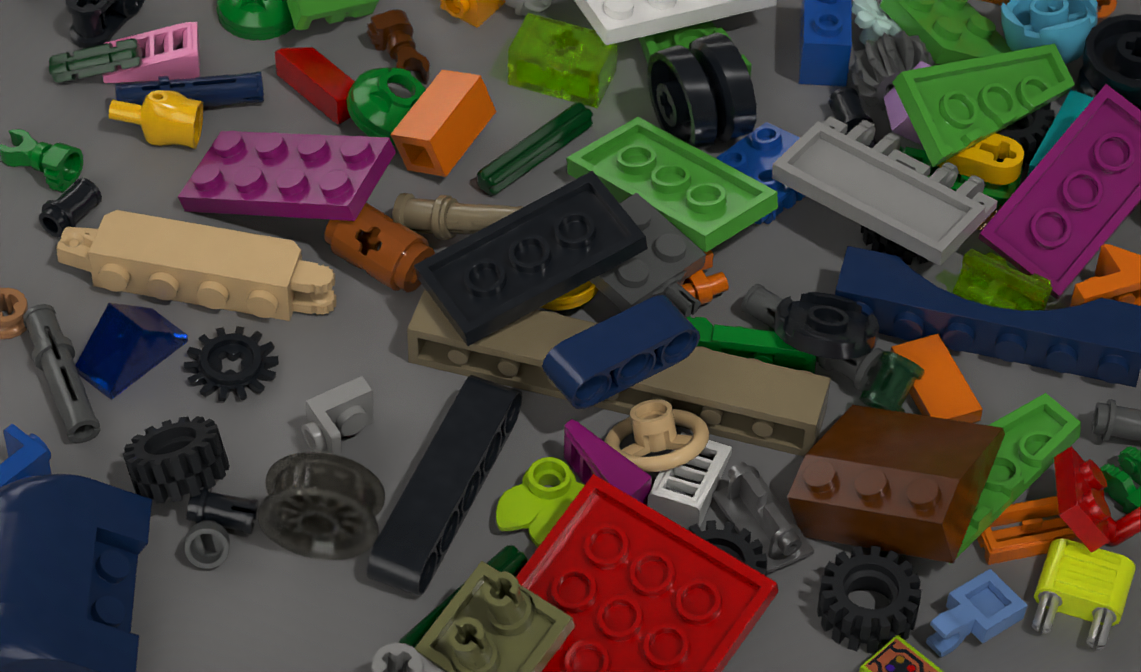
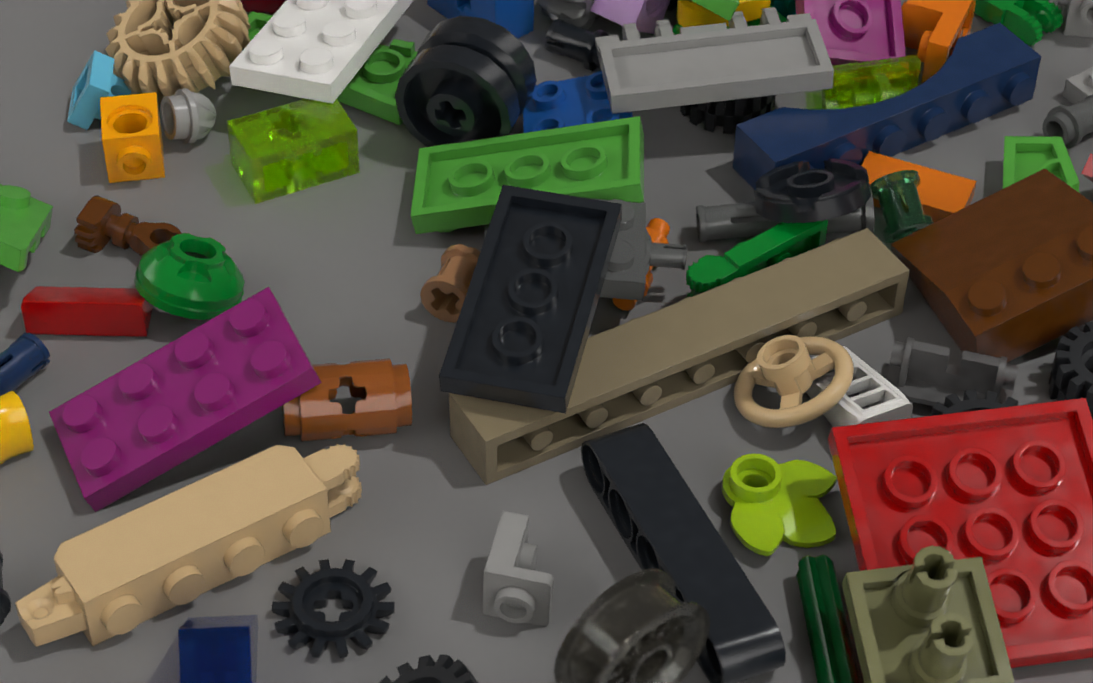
camera: 45 degrees left, 5 degrees down
(443, 123) = (266, 252): orange brick -> none
(445, 215) = (377, 332): dark tan pin -> none
(534, 148) = (360, 235): dark green axle -> none
(592, 455) = (802, 432): magenta slope -> none
(620, 351) = (705, 320): dark blue beam -> none

